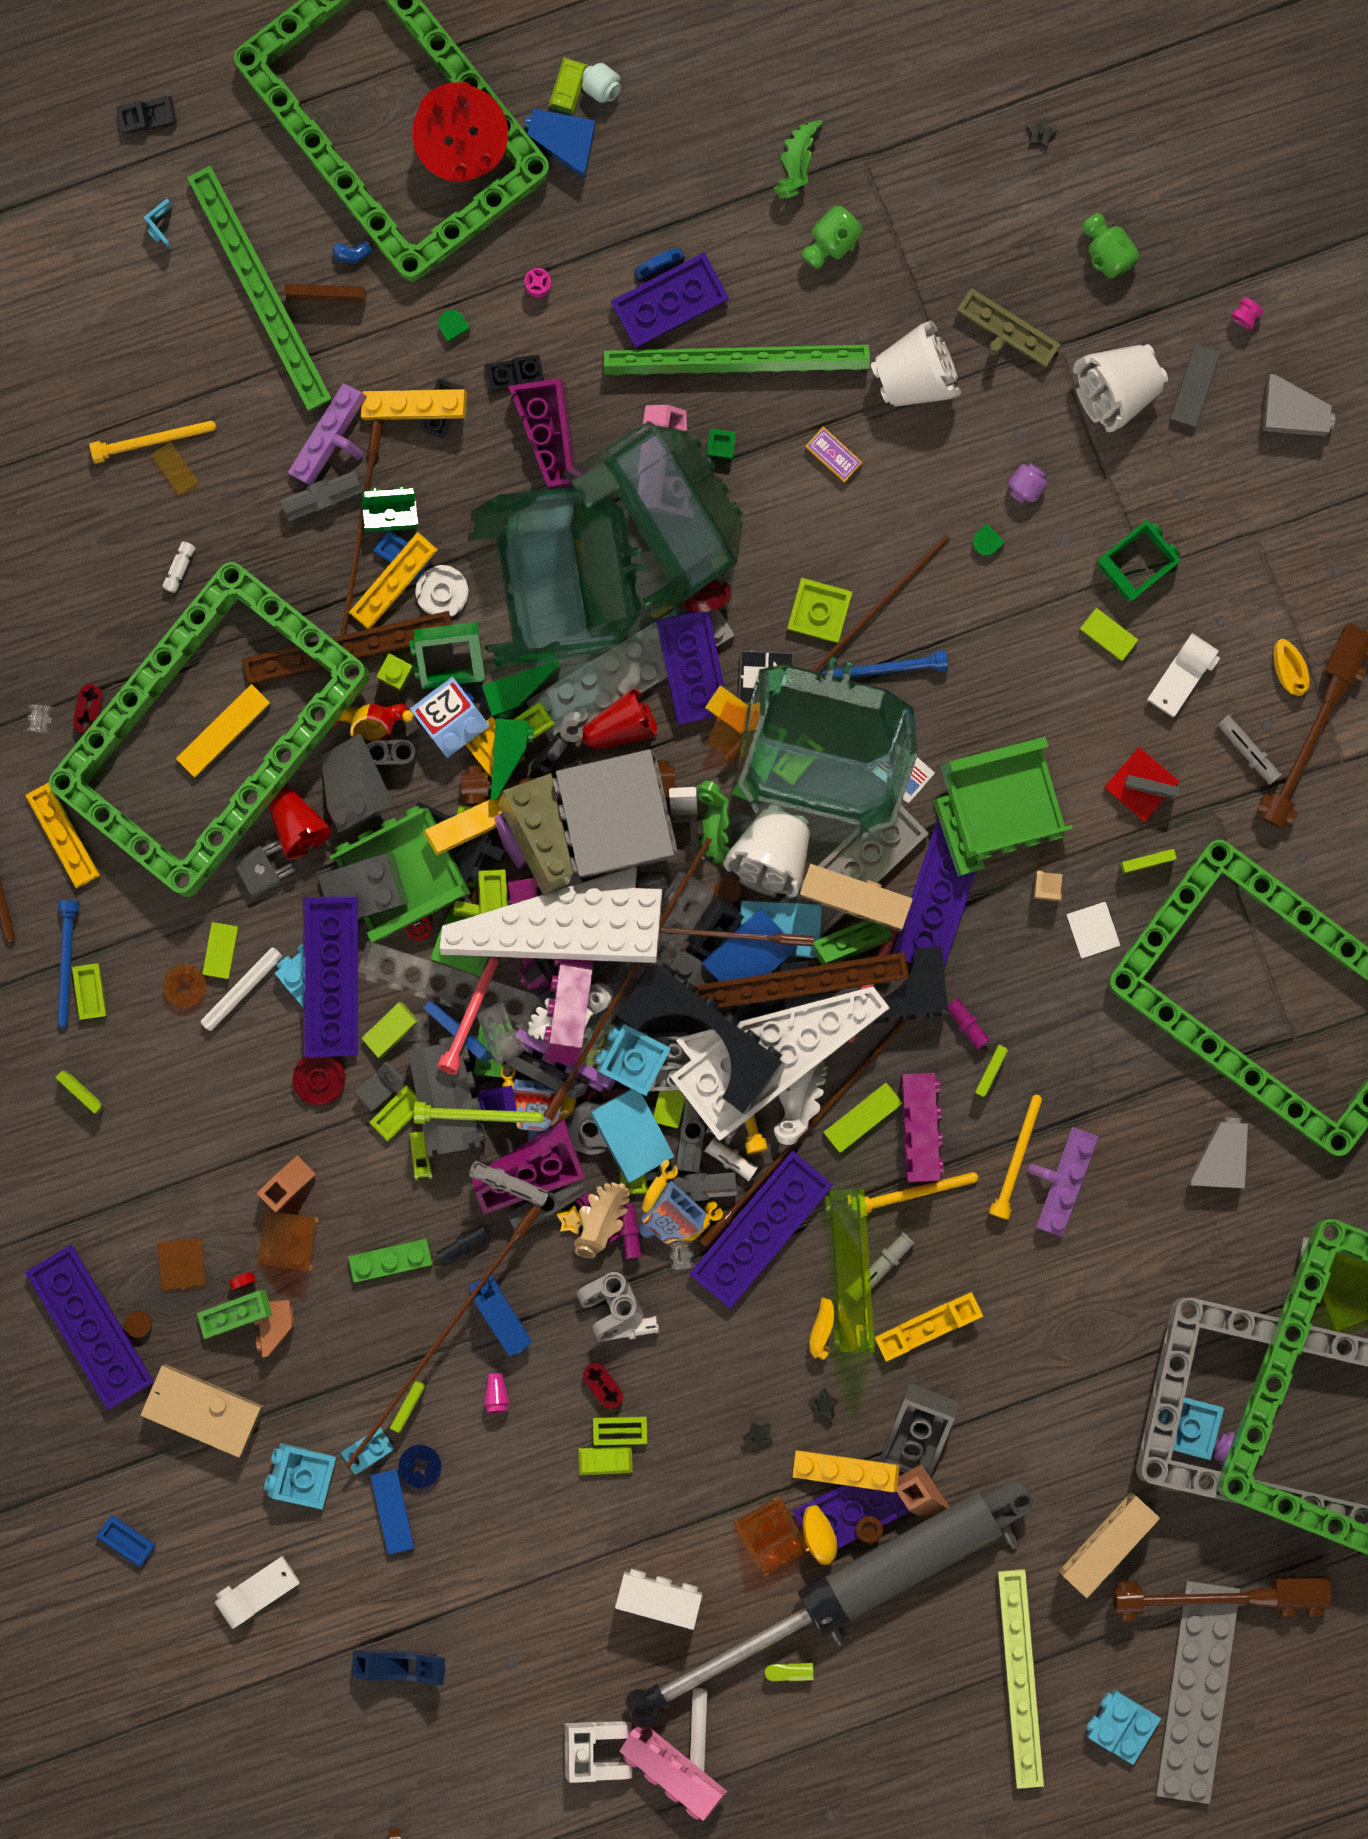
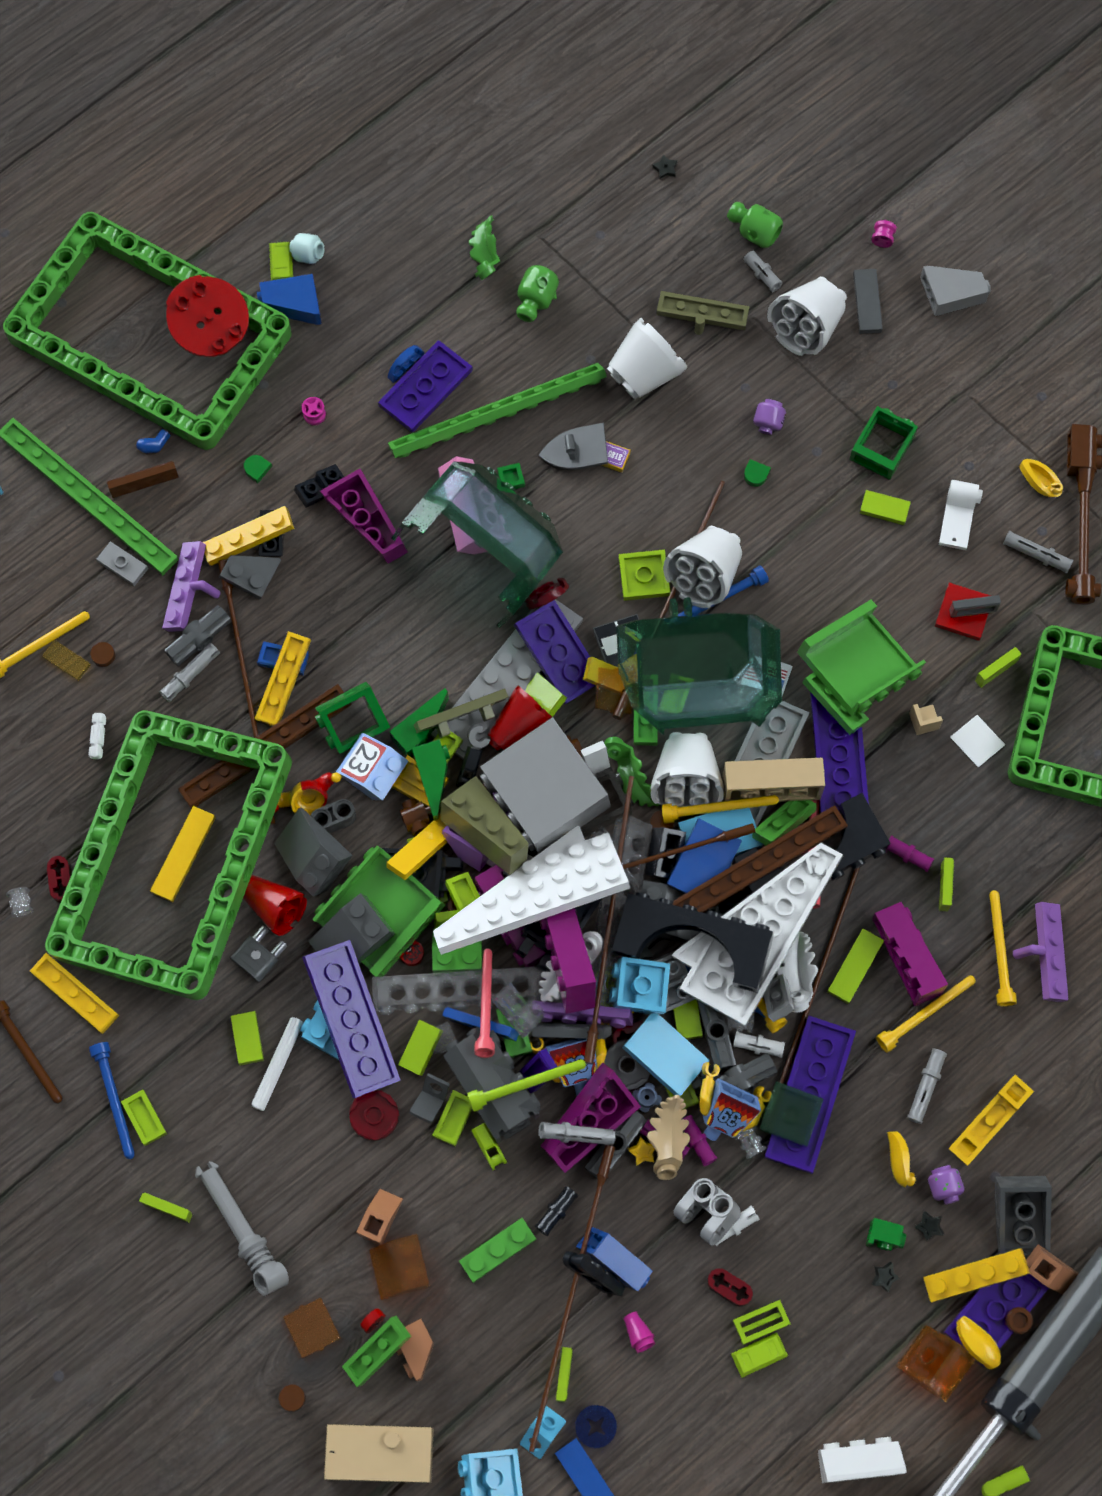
camera: 25 degrees left, 15 degrees down
(89, 1326) = (249, 1418): dark purple plate -> none
(156, 1198) = (252, 1248): none -> light grey piece
(172, 983) = (225, 1068): clear orange gear -> none
(215, 477) = (102, 654): none -> reddish brown tile
(270, 381) = (122, 563): none -> light grey plate
(303, 532) = (184, 677): none -> light grey pin
(389, 509) = (258, 623): bracket -> none
(395, 672) = (312, 750): lime brick -> none
(402, 447) = (250, 573): none -> dark grey wing
(442, 590) = (325, 672): white tile -> none
(472, 1323) = (592, 1273): none -> black plate
(561, 573) = (418, 612): windscreen -> none
(588, 694) = (482, 704): none -> olive hinge
(602, 1162) = (649, 1090): none -> sand blue plate
(660, 707) = (545, 694): none -> lime tile
(731, 1244) = (791, 1114): none -> plate
(740, 887) = (672, 812): none -> yellow piece
(767, 1123) = (778, 998): none -> light grey plate
(776, 1397) = (885, 1234): none -> green brick
(806, 438) = (577, 448): none -> shield
(851, 1270) = (906, 1094): clear neon green slope -> none
(857, 1371) = (946, 1184): none -> medium lavender head
(884, 632) = (704, 566): none -> white cone
(1094, 305) = (754, 261): none -> light grey pin

